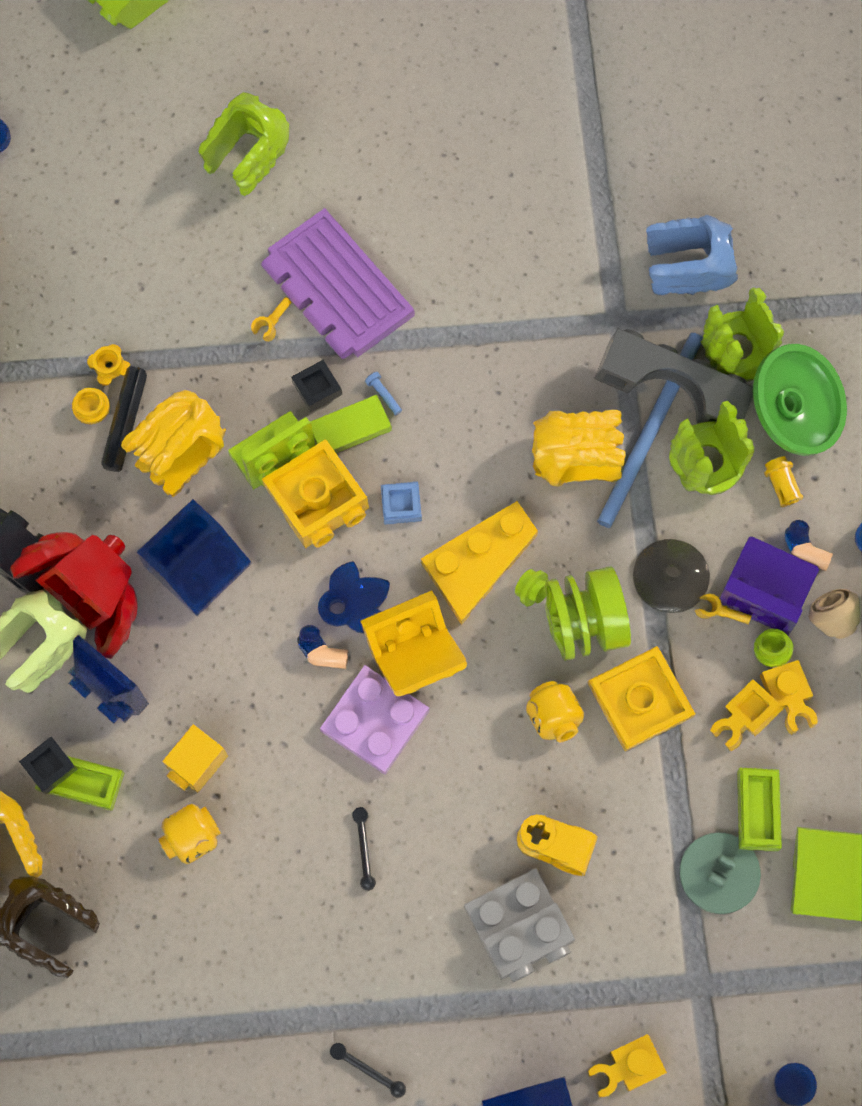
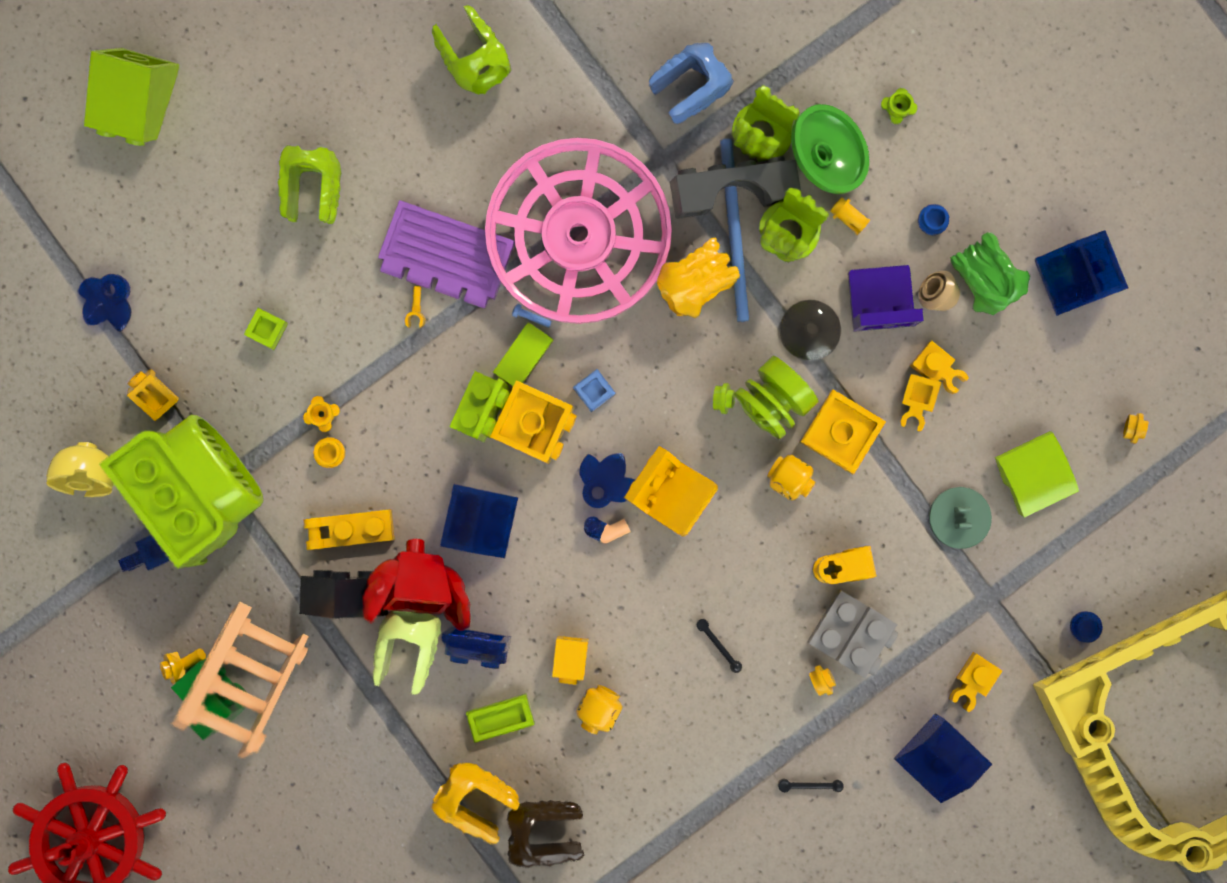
camera: 35 degrees left, 15 degrees up
(48, 765) = (475, 725): black plate -> none
(59, 493) = (350, 529): none -> yellow plate
(111, 252) = (266, 328): none -> lime plate
(124, 418) = (359, 447): black axle -> none
(176, 440) = (411, 445): yellow piece -> none
(316, 385) = (481, 340): black plate -> none
(374, 720) = (670, 558): lavender plate -> none
(453, 955) = (822, 680): none -> yellow plate
(477, 558) = (673, 398): yellow wing -> none
(489, 316) = (576, 212): none -> bright pink dish
(501, 115) = (467, 68): none -> lime piece
(721, 610) = (857, 336): yellow hand -> none
(759, 809) = (962, 460): lime tile -> none
(773, 648) = (910, 342): lime plate -> none
(800, 545) = (888, 257): arm -> none

